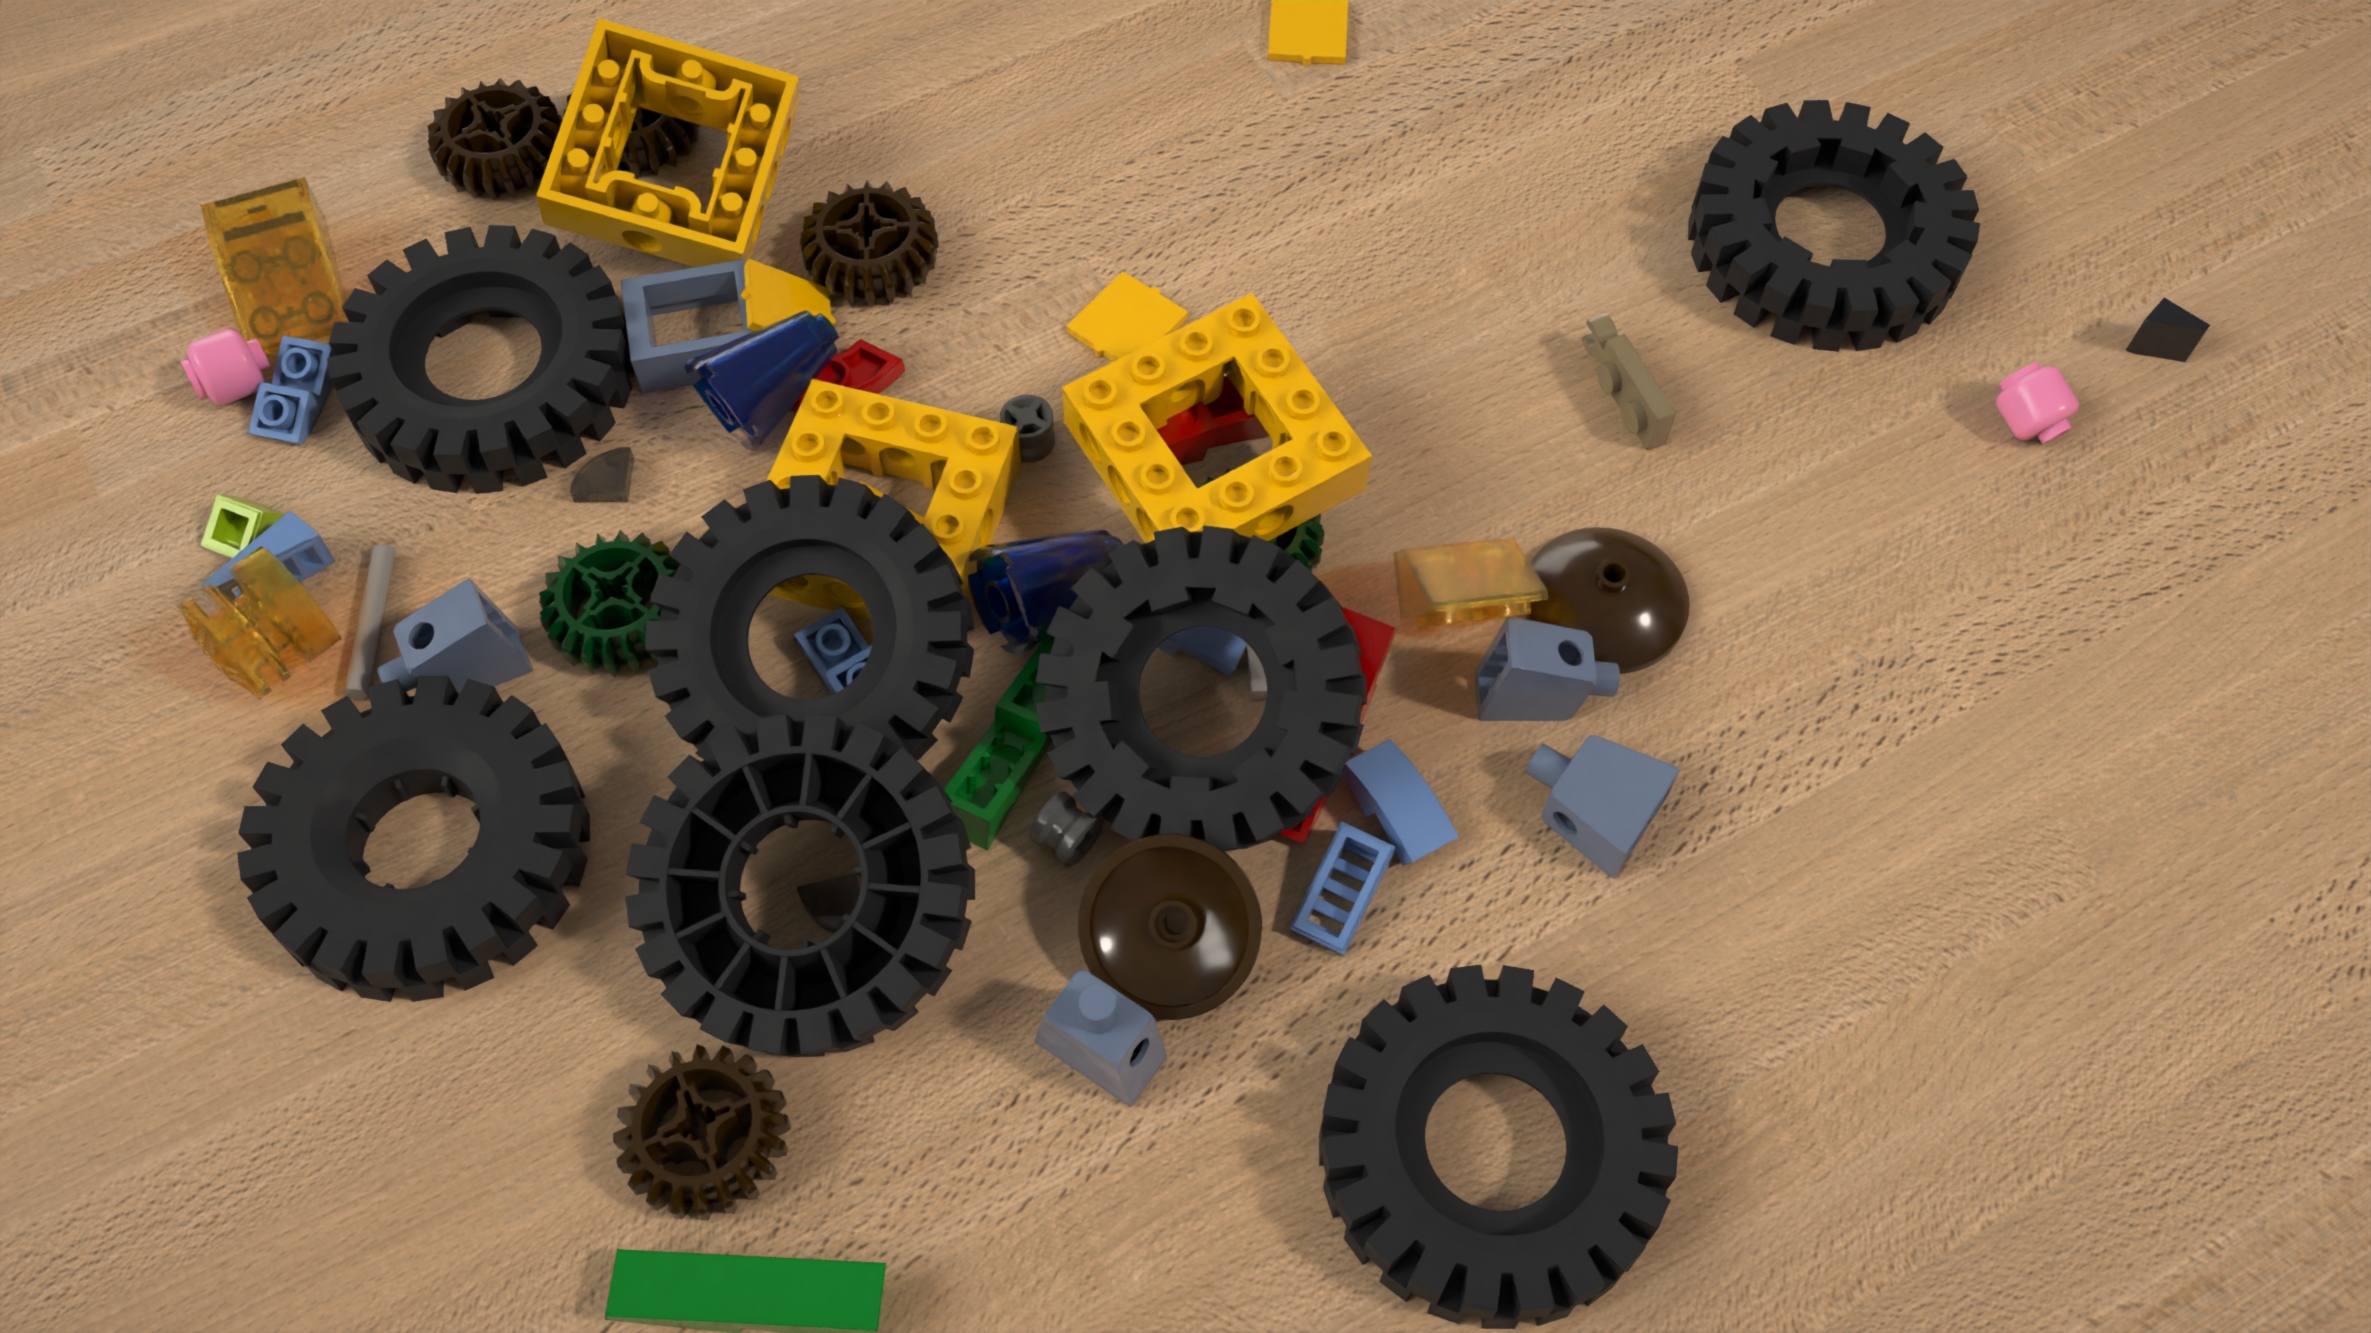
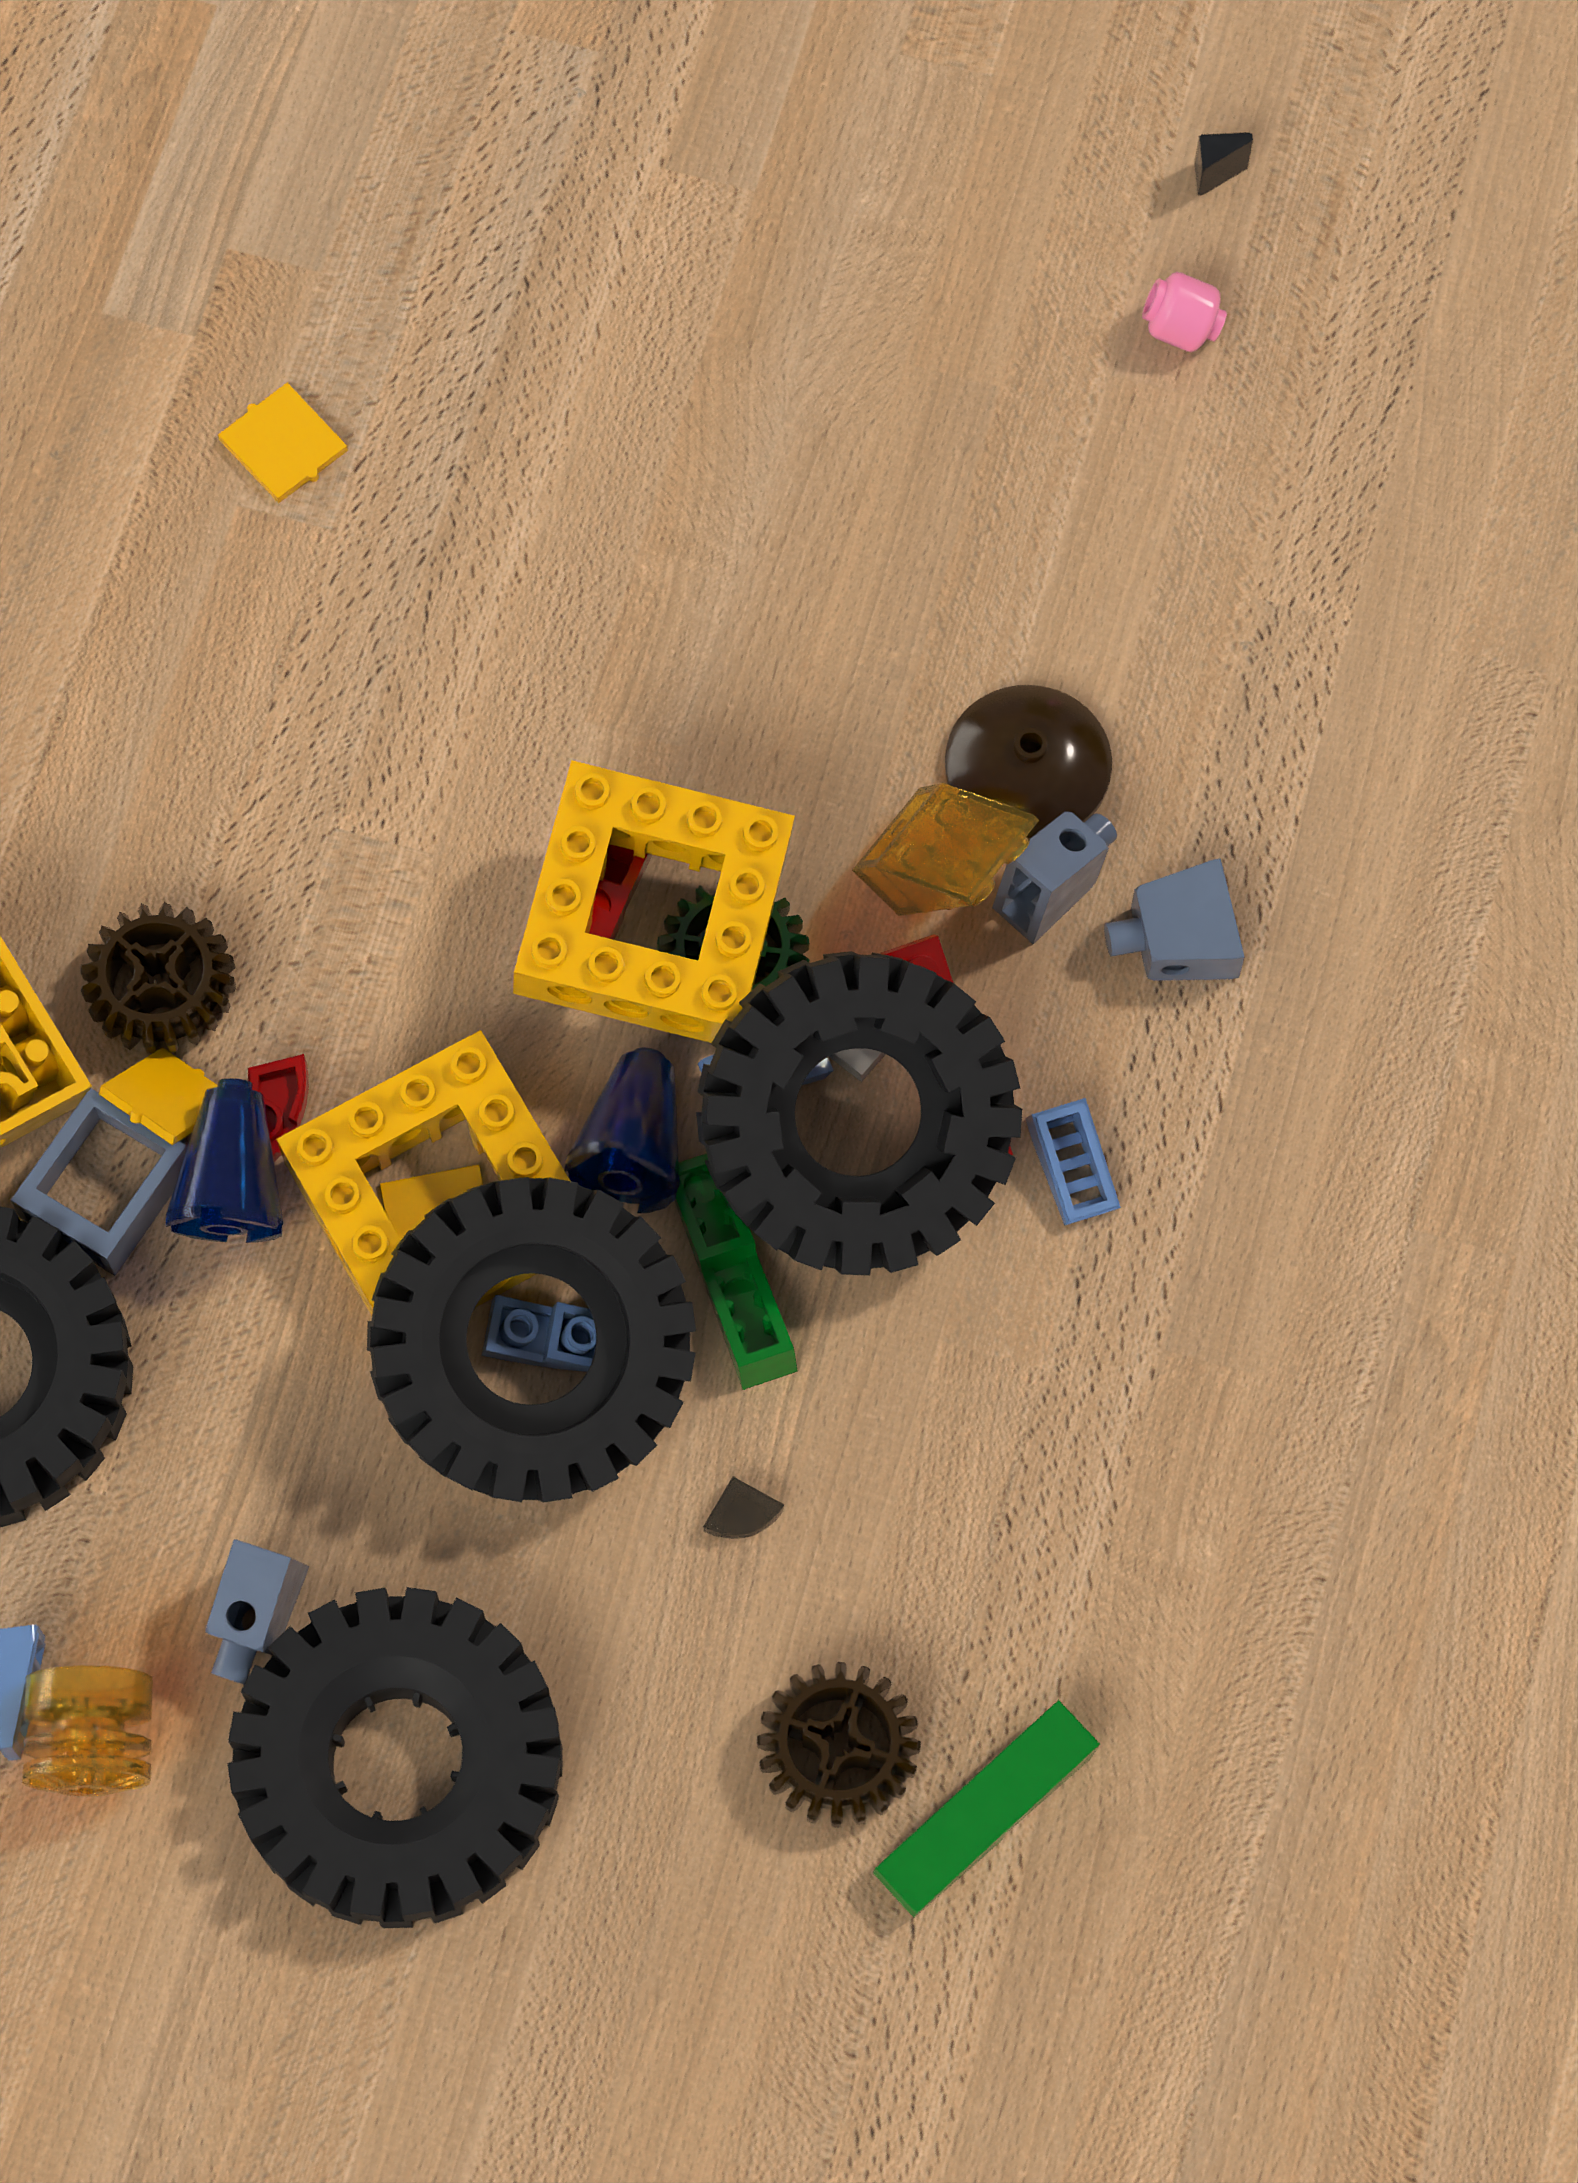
camera: 45 degrees left, 10 degrees up
(369, 622) = (140, 1652): light grey bar -> none
(605, 477) = (181, 1370): clear smoke tile -> none
(619, 585) = (302, 1454): dark green gear -> none
(885, 951) = (628, 1540): black tyre -> none
(1031, 413) = (466, 1007): dark grey wheel -> none
(1065, 829) = (846, 1303): dark grey wheel -> none
(1096, 1034) = (1027, 1421): sand blue torso -> none
(1125, 318) = (434, 855): yellow piece -> none
(1127, 931) = (1027, 1323): dark brown dish -> none
(1402, 800) = (1057, 1060): medium blue slope -> none
(1475, 1258) = (1329, 1341): black tyre -> none
(1629, 382) = (876, 561): dark tan plate -> none
(1919, 202) = (877, 188): black tyre -> none

